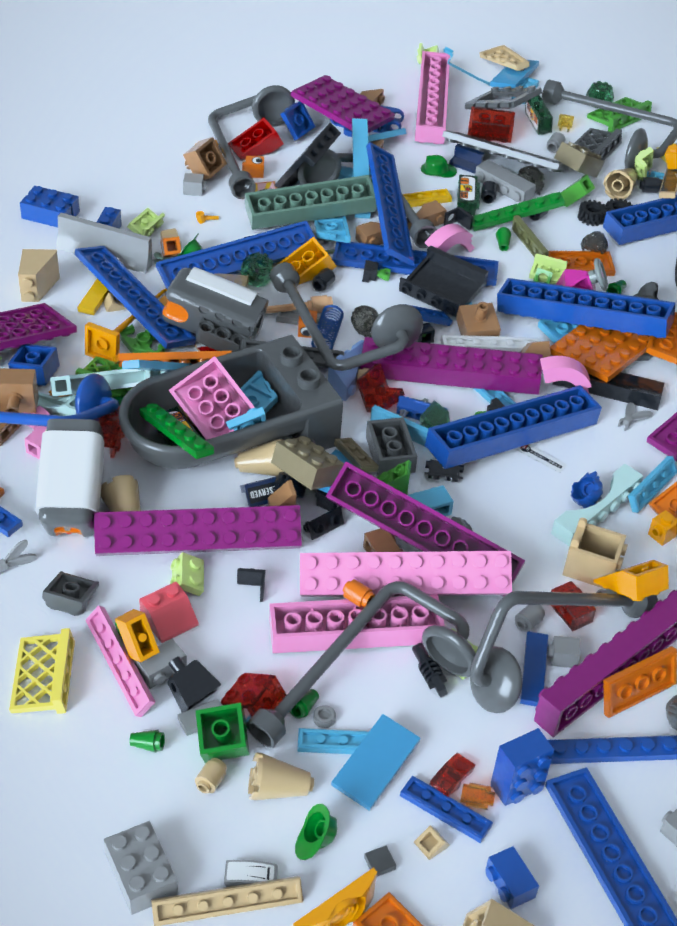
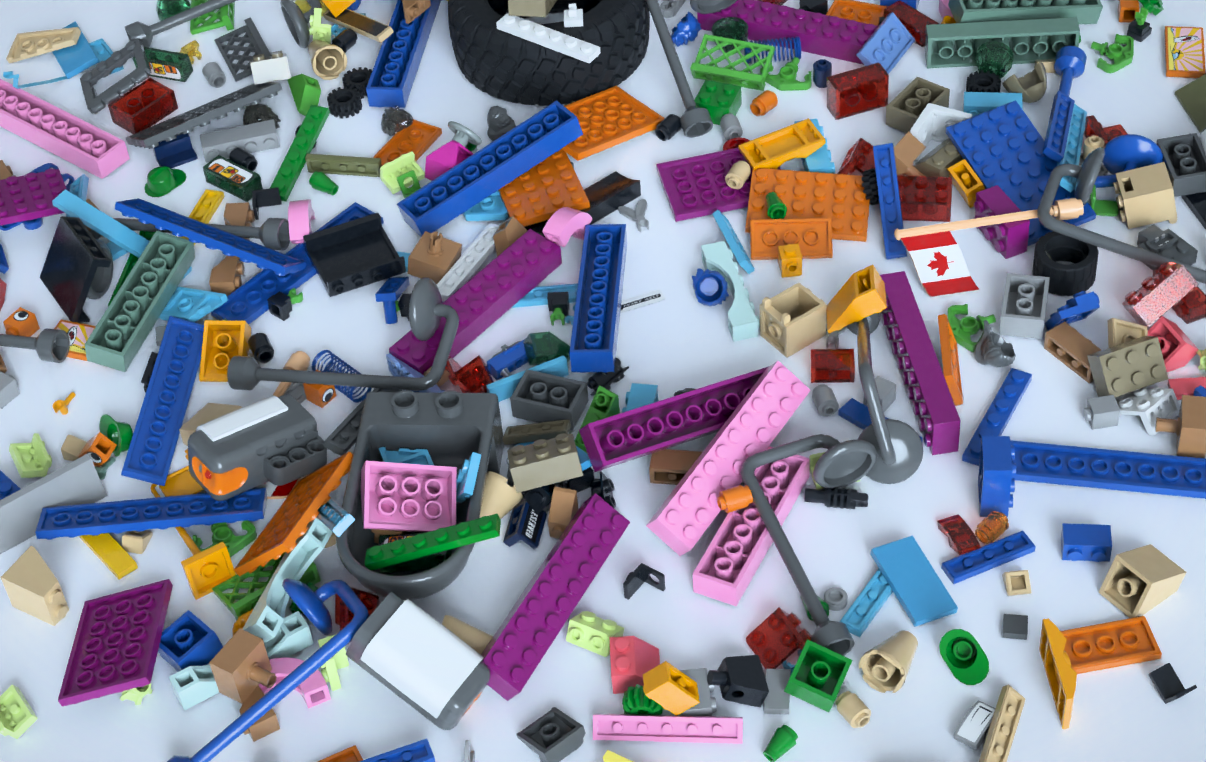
camera: 50 degrees left, 0 degrees up
(258, 269) = (200, 389): clear green piece -> none
(363, 319) = (359, 340): clear smoke hair -> none

